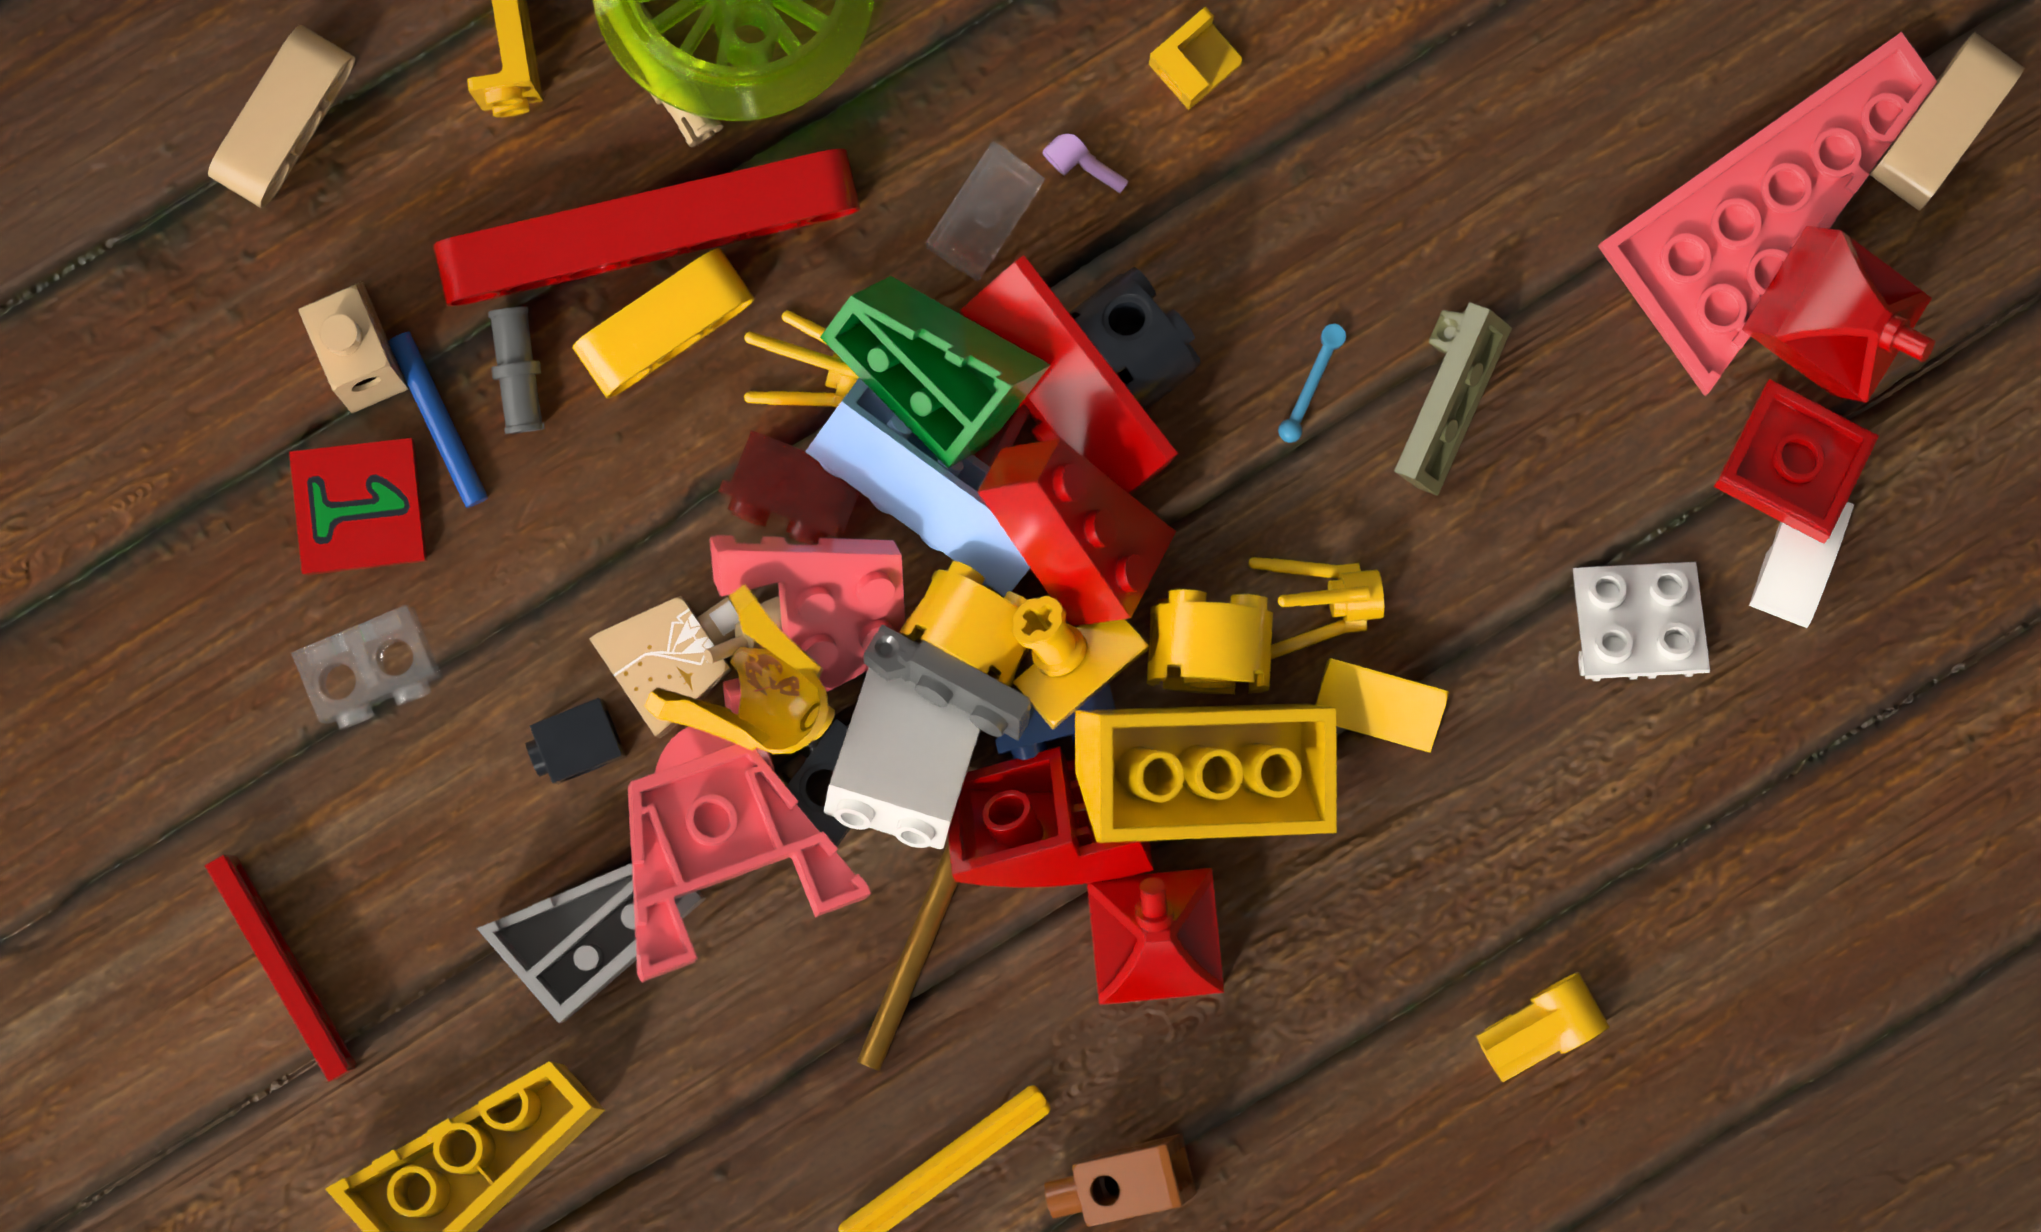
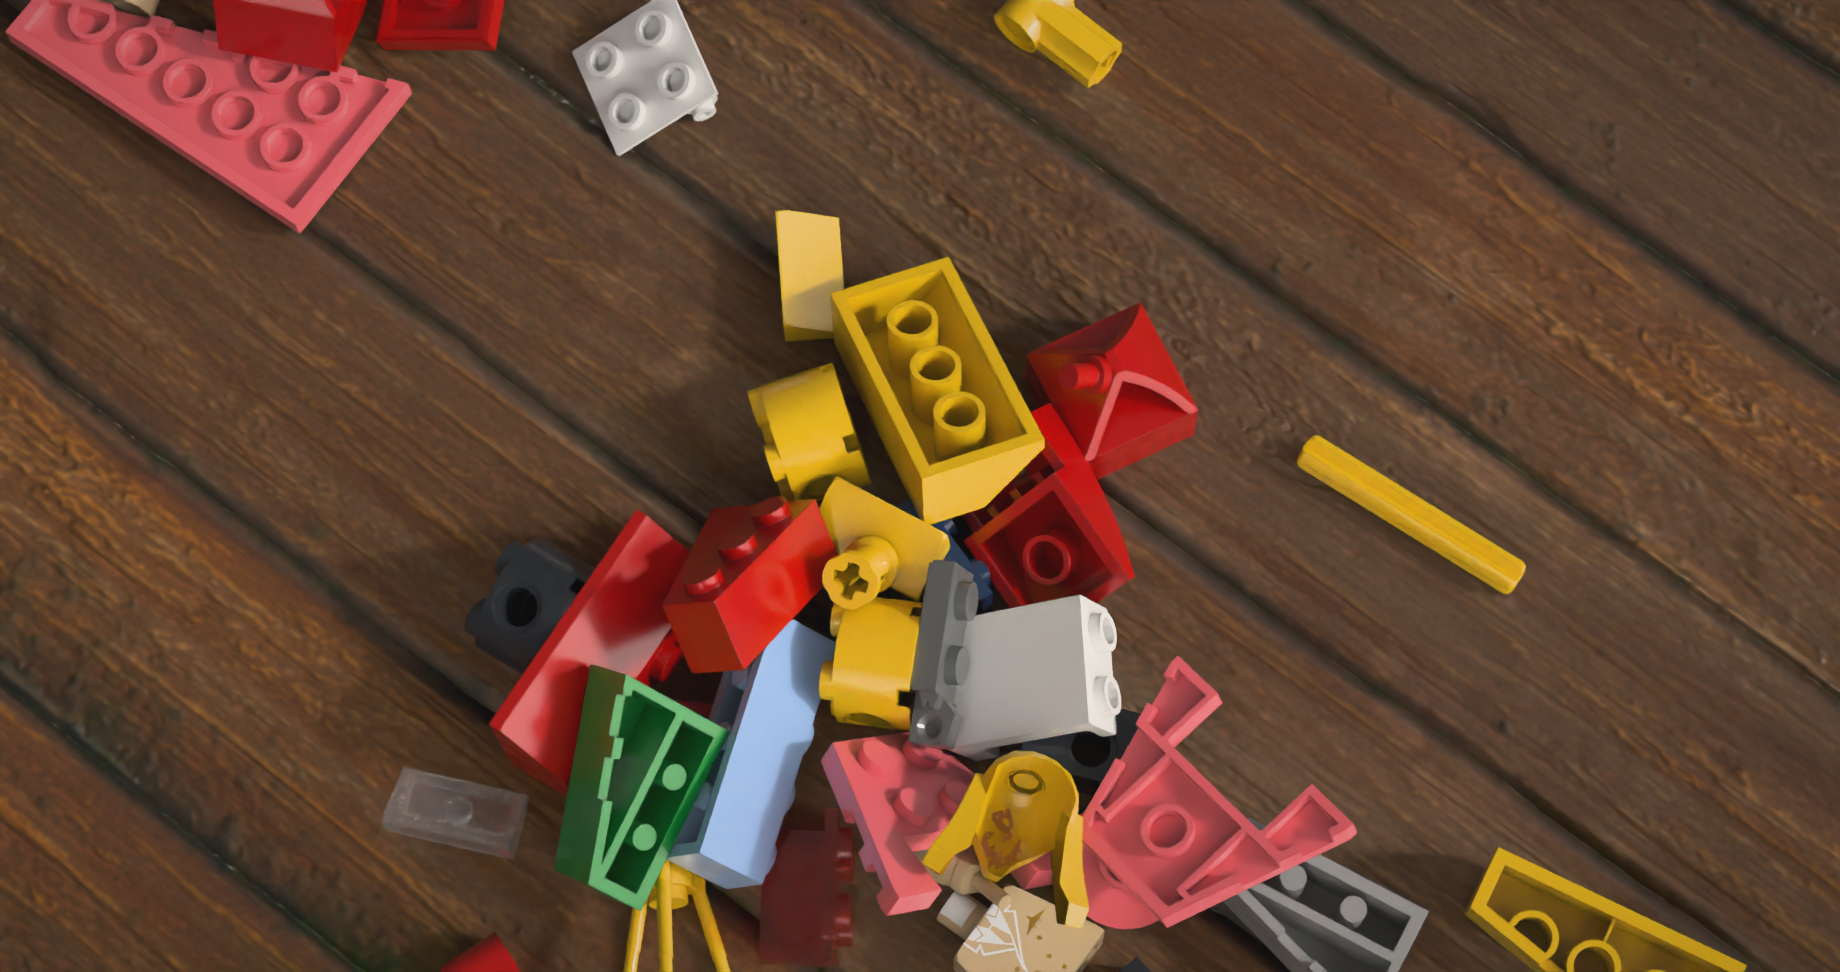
camera: 110 degrees left, 15 degrees down
(909, 965) = (1225, 616): pearl gold bar -> none
(1069, 150) = (369, 753): lavender hand -> none
(1149, 1175) = (1349, 312): torso -> none
(1195, 59) = (237, 663): yellow panel -> none
(1332, 338) = (472, 444): dark azure hinge -> none
(1354, 596) = (719, 335): yellow plant -> none
(1472, 350) = (434, 308): olive hinge -> none

